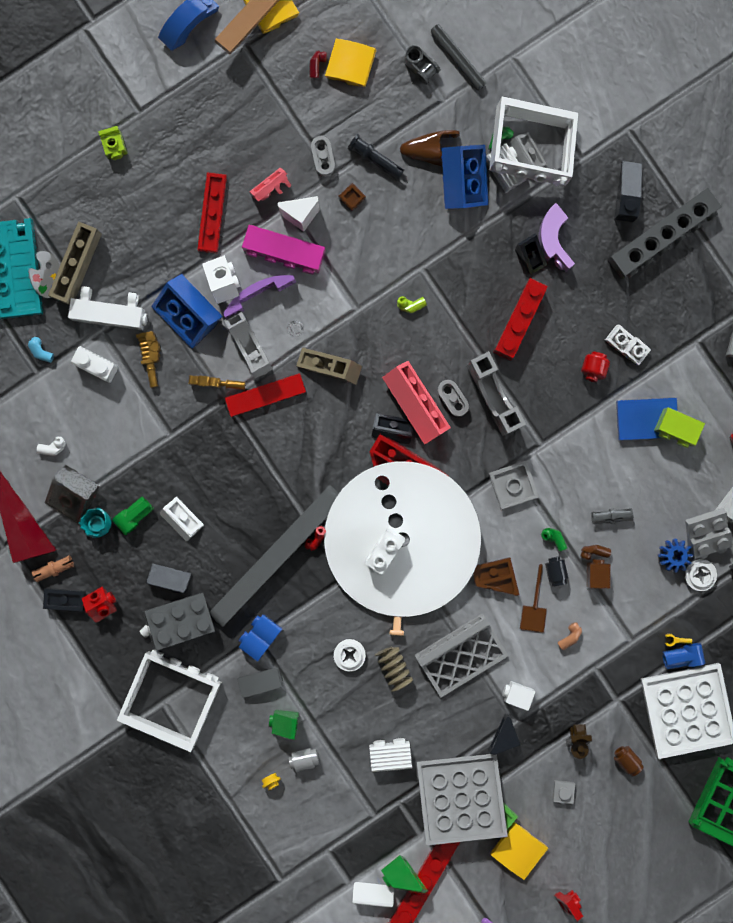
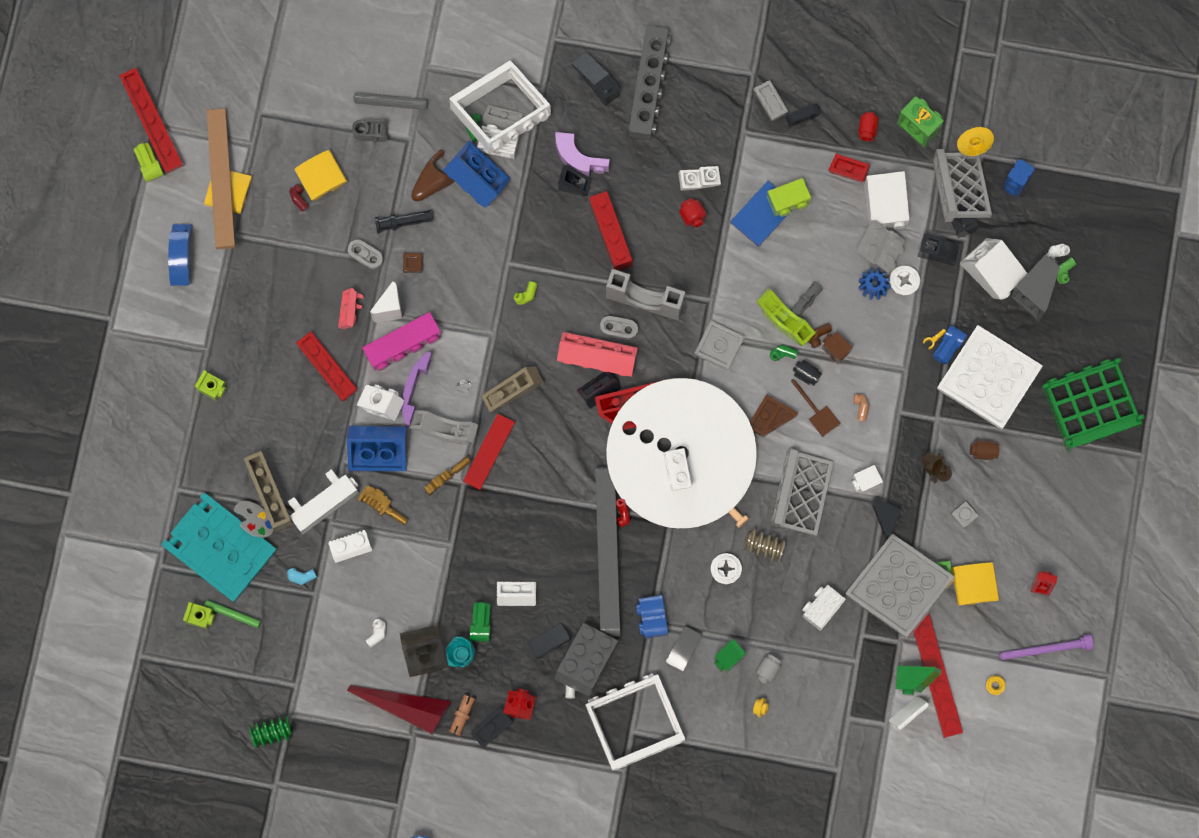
camera: 45 degrees left, 10 degrees down
(581, 515) = (783, 319): none -> lime arch

